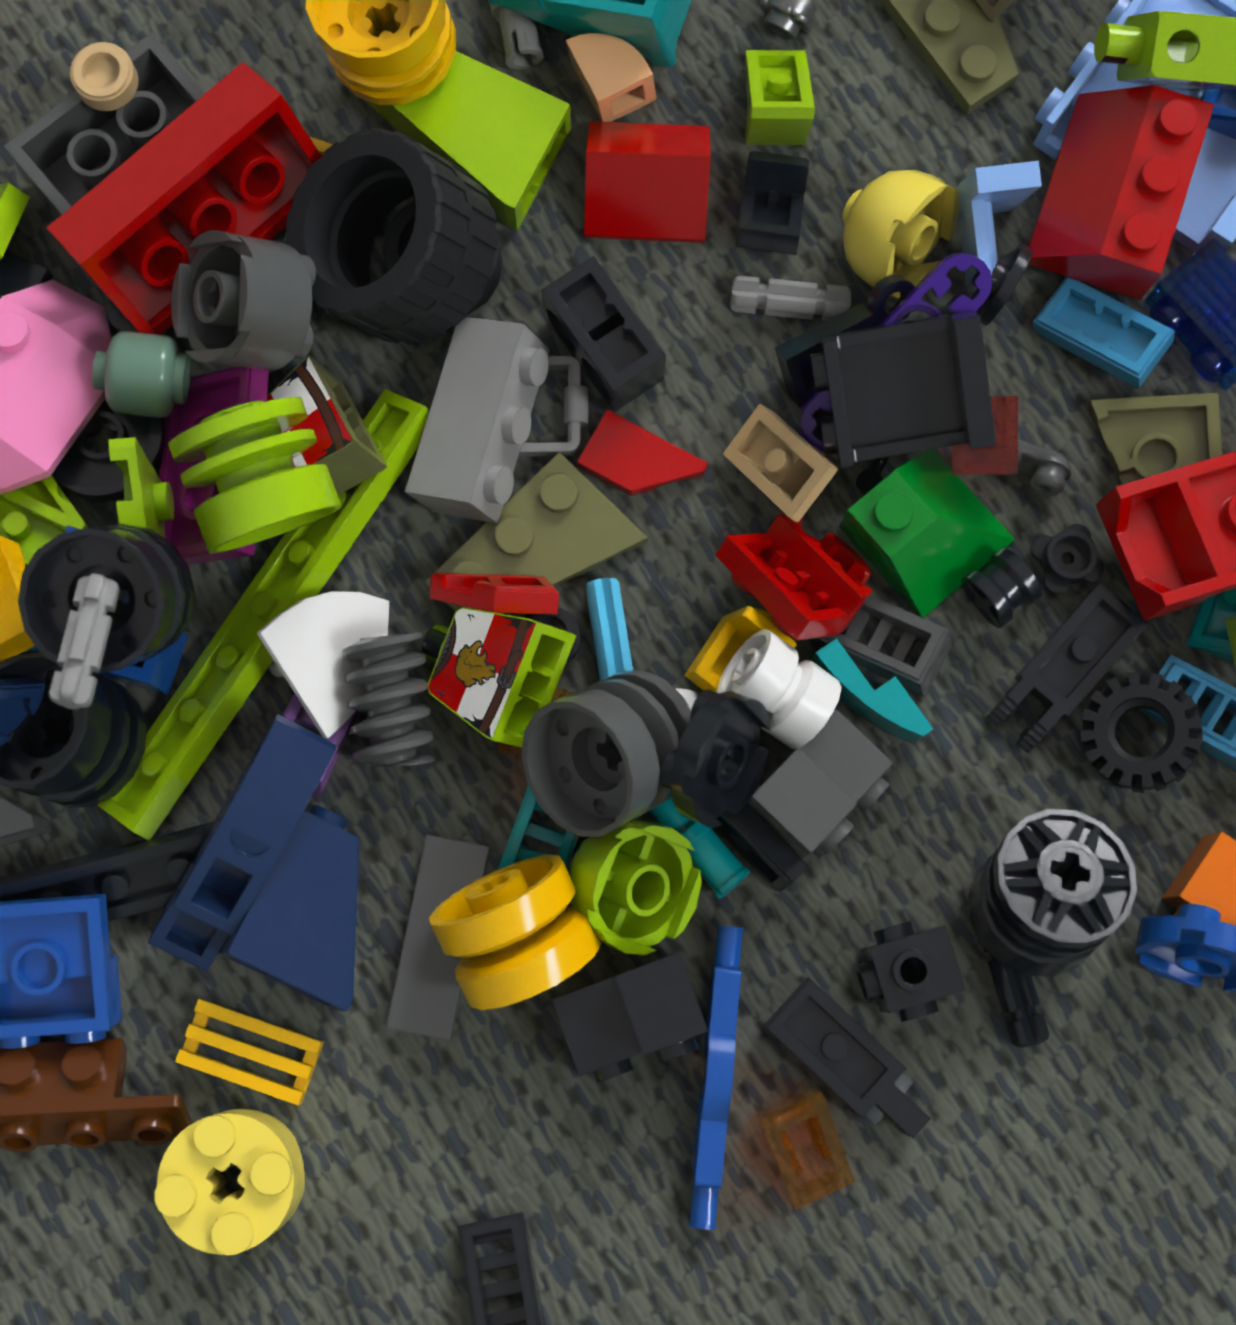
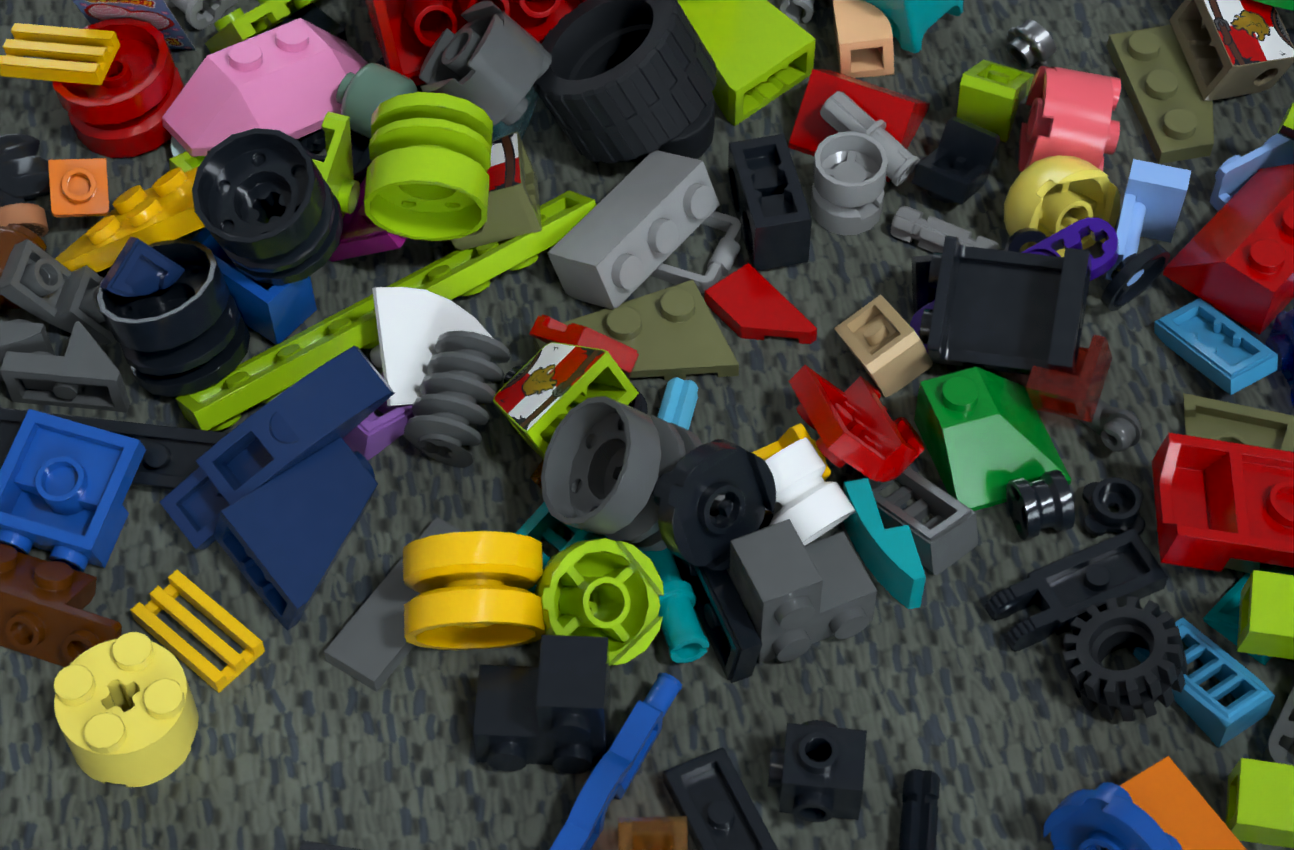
camera: 25 degrees right, 25 degrees down
(84, 642) = (233, 207): light grey axle -> none
(674, 212) = (847, 116): none -> light grey axle
(675, 276) = (848, 183): none -> light grey wheel
(874, 117) = (1070, 116): none -> coral brick
(1052, 892) = (979, 743): black wheel -> none

